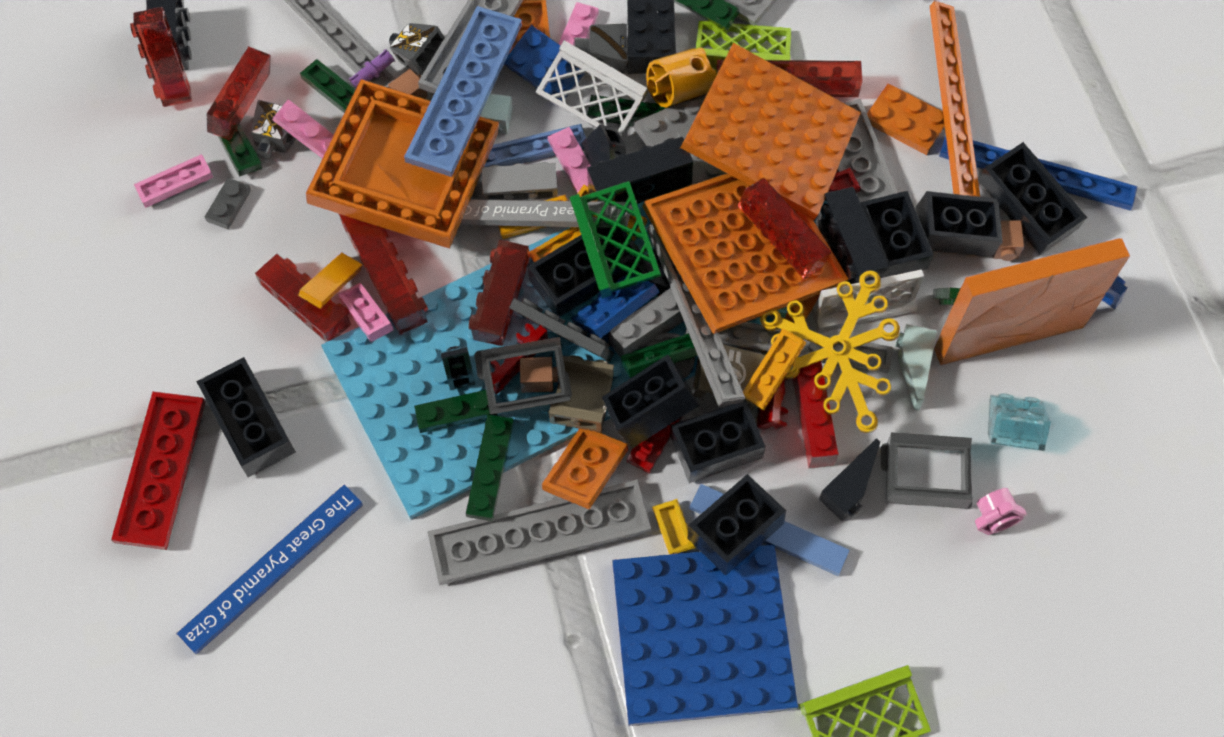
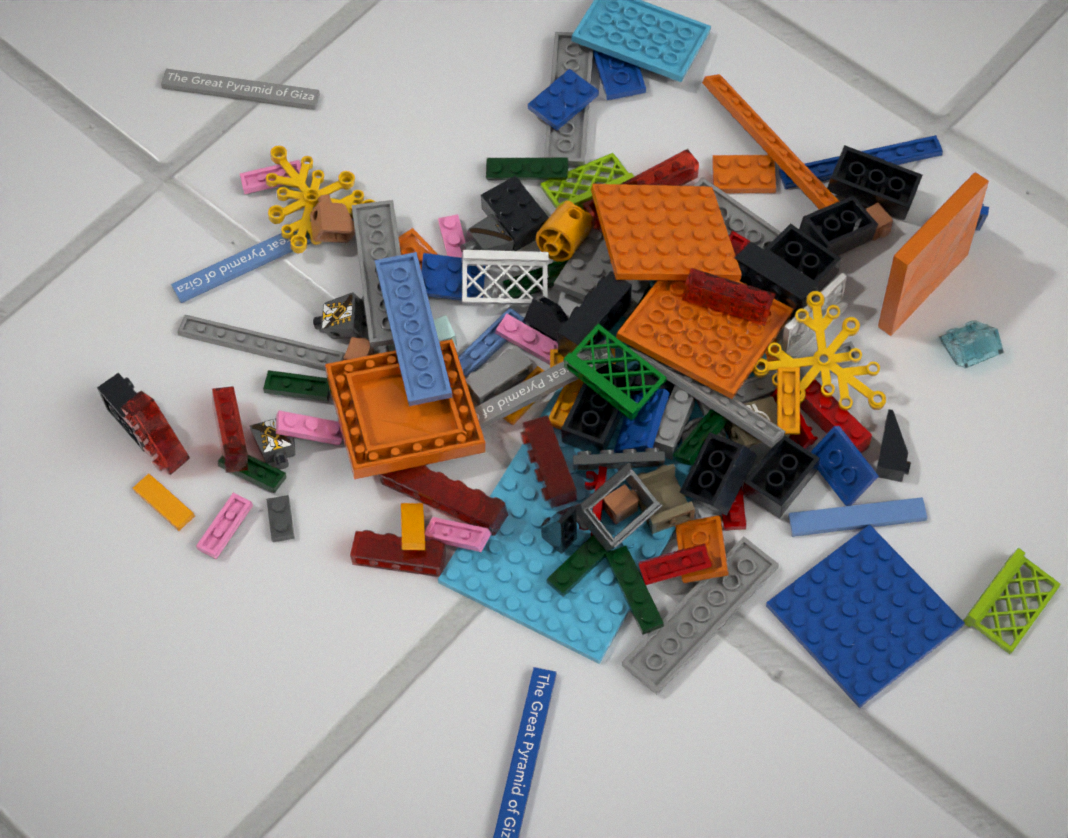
camera: 30 degrees left, 5 degrees down
(140, 128) = (163, 502): none -> light orange tile
(158, 471) = (385, 741): red plate -> none
(245, 417) = (425, 662): black brick -> none
(373, 68) = (320, 354): medium lavender pin -> none
(543, 466) = (675, 564): none -> red plate
(673, 527) = (791, 554): yellow tile -> none
(736, 524) = (838, 523): black brick -> none
(788, 466) = (843, 466): none -> blue plate
(915, 358) = (875, 343): light aqua slope -> none
(921, 495) = (945, 431): dark grey piece -> none
(946, 295) = (871, 281): dark green plate -> none
(998, 512) = (1003, 411): bright pink piece -> none

